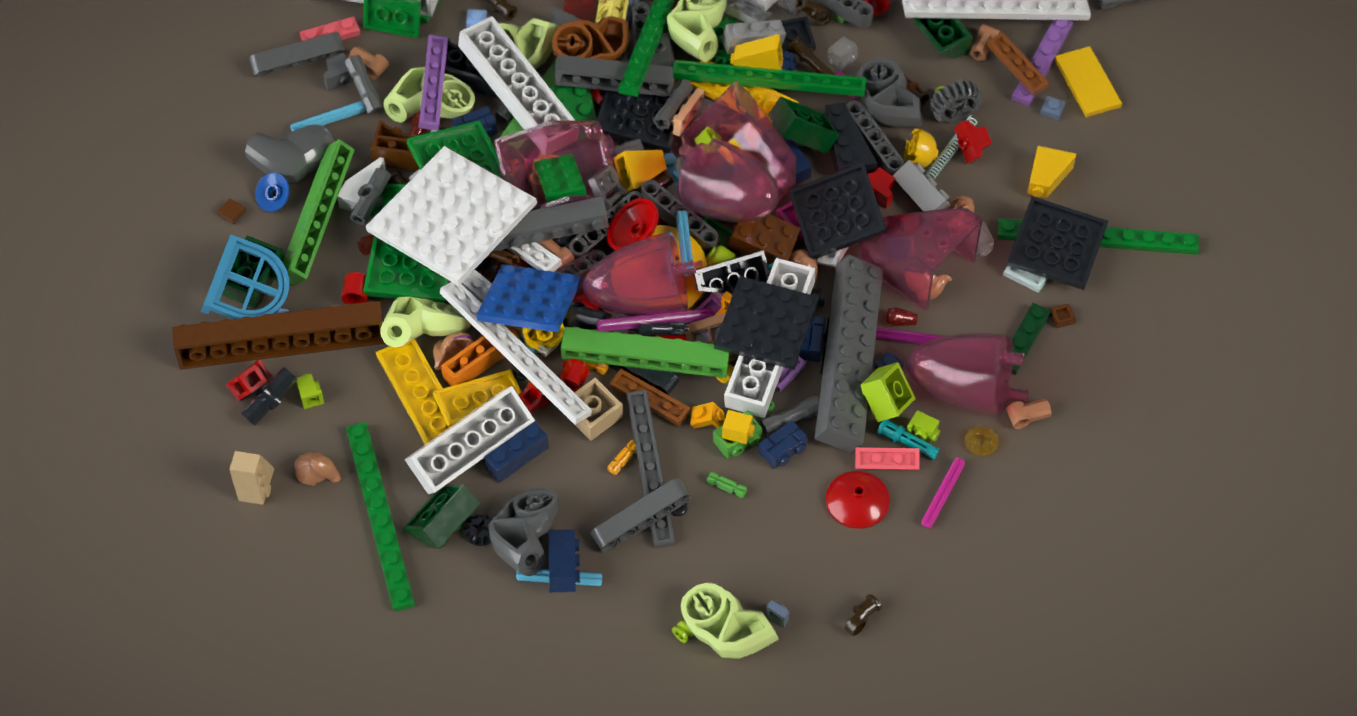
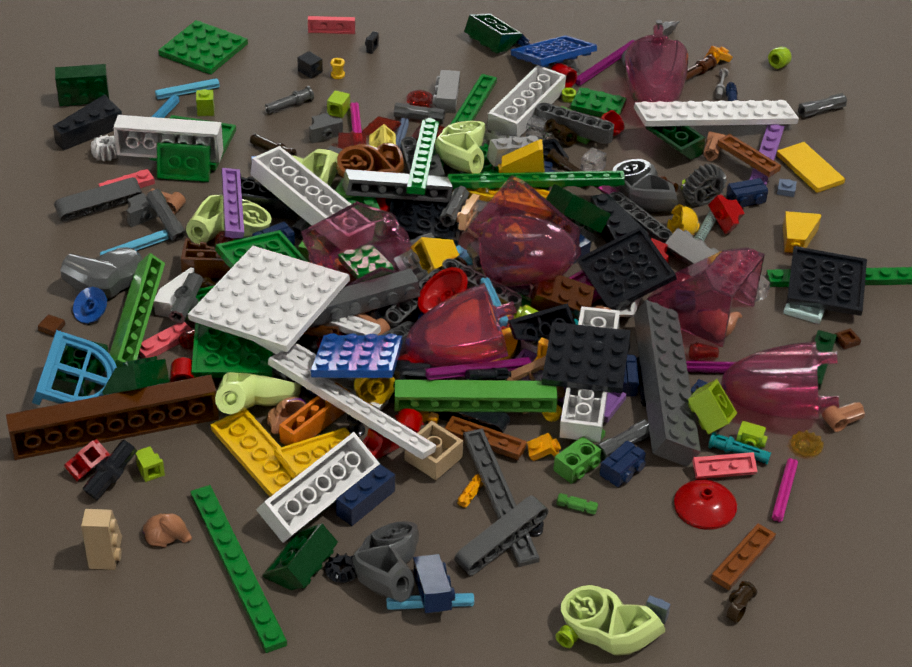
camera: 10 degrees left, 15 degrees down
(308, 294) = (137, 375): none -> dark green slope
(341, 243) = (162, 341): none -> coral plate
(738, 427) = (579, 448): yellow brick -> none
(879, 565) = (743, 556): none -> dark orange plate
(1004, 113) = (747, 192): none -> dark blue brick

